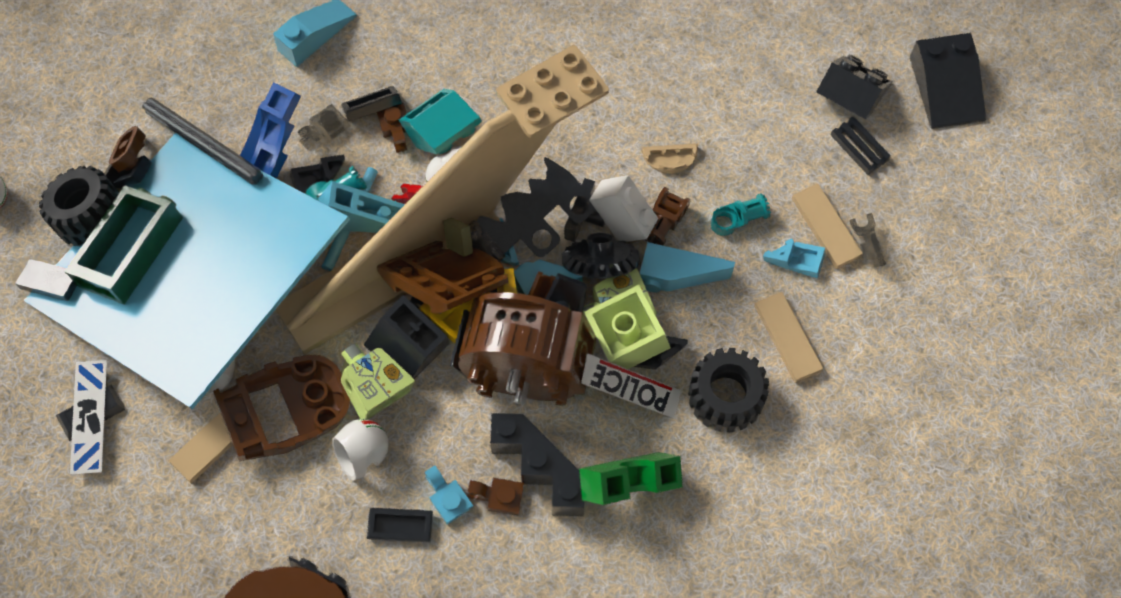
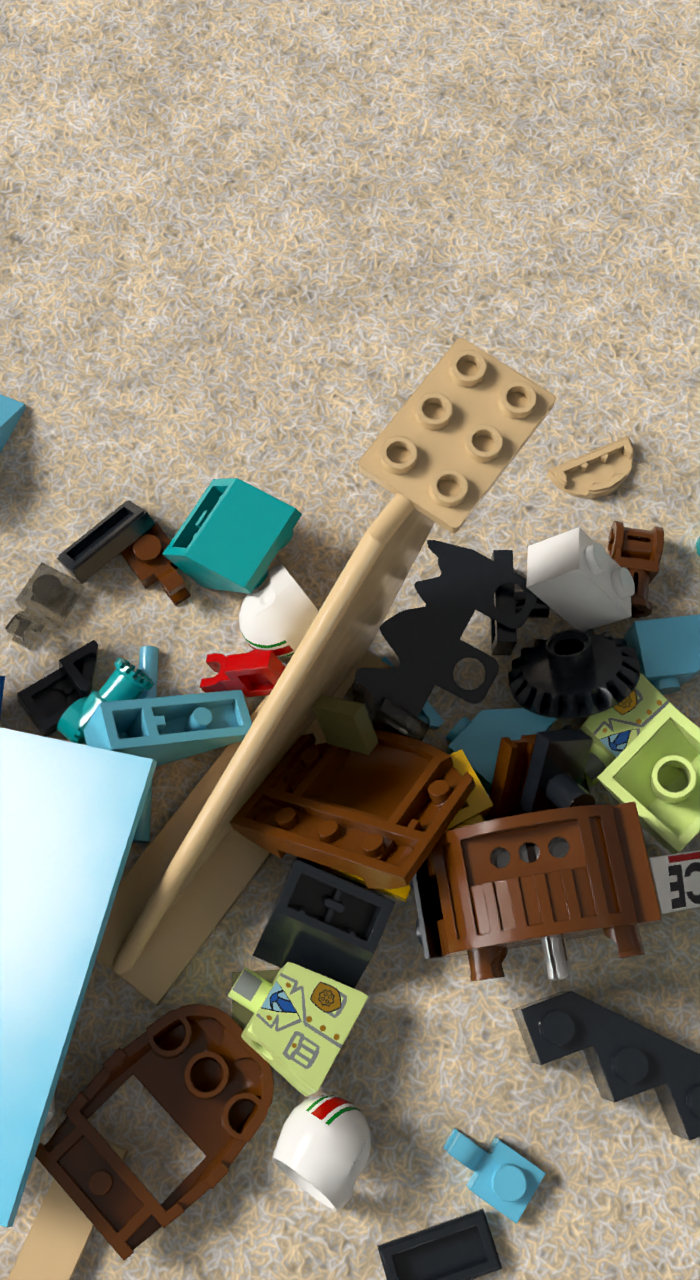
camera: 20 degrees left, 5 degrees up
(502, 496) = (583, 1134): reddish brown plate -> none

